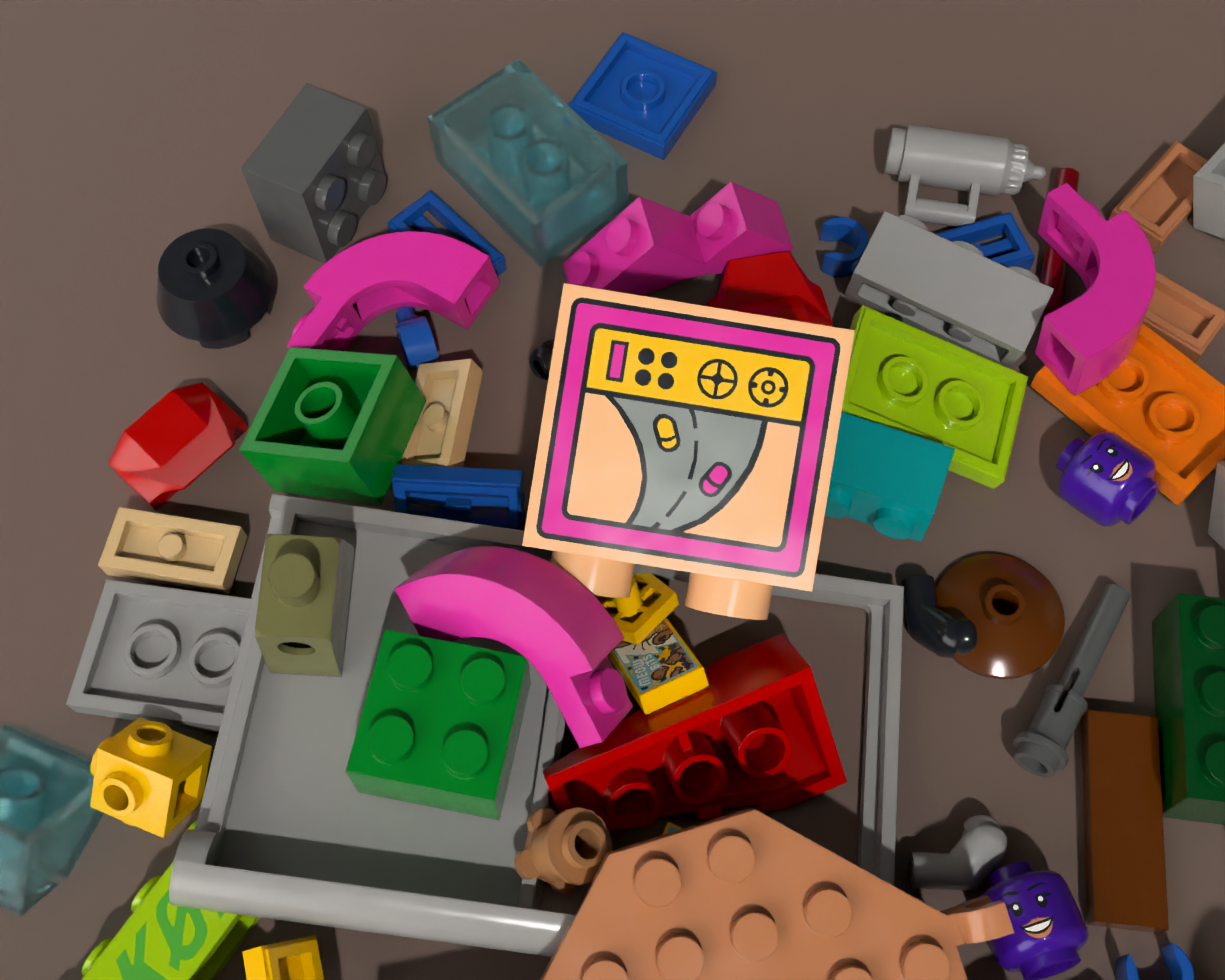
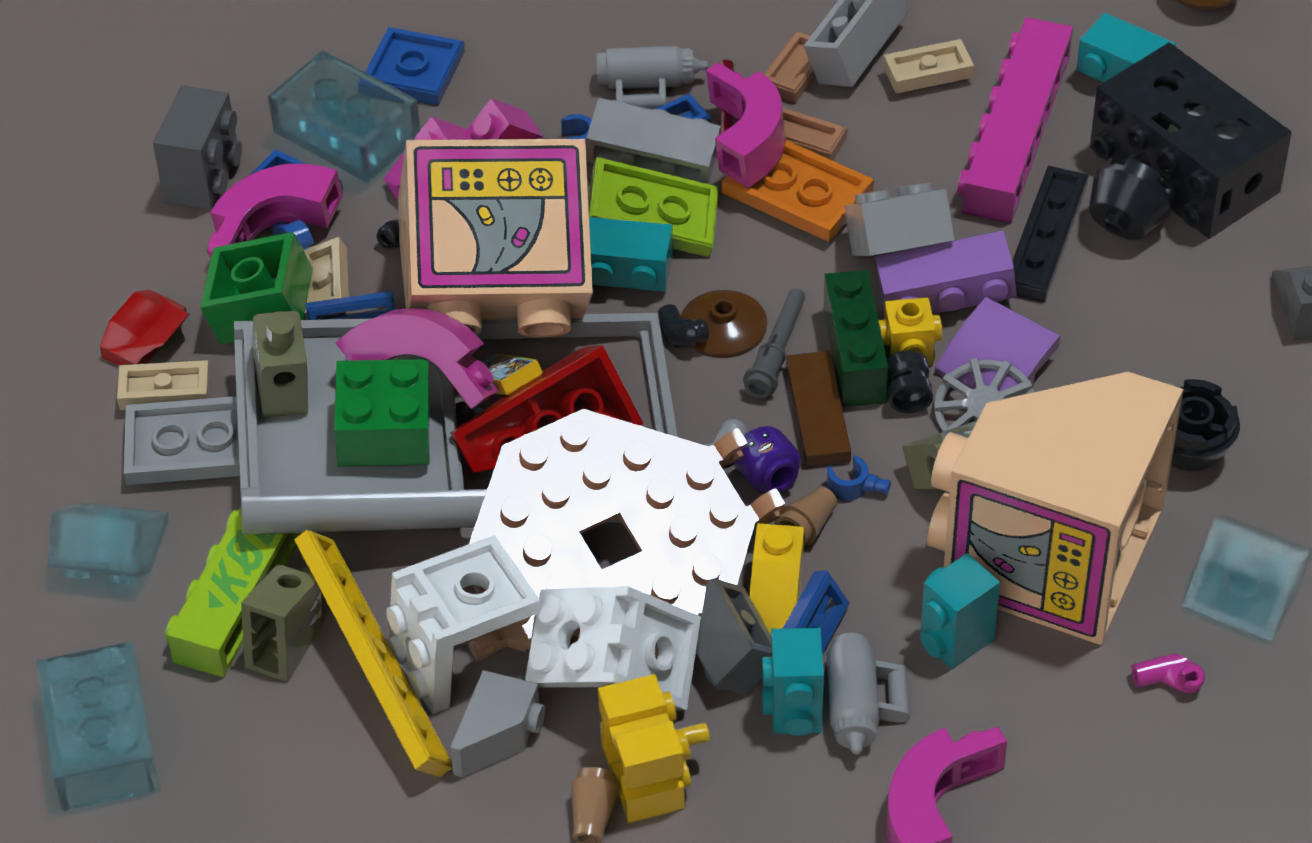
camera: 15 degrees left, 15 degrees down
(149, 776) = (194, 495): yellow brick -> none
(213, 288) = (138, 232): black cone -> none
(563, 848) = (472, 464): medium nougat brick -> none
(644, 609) = (494, 348): yellow piece -> none
(1107, 478) = (777, 230): dark purple head -> none

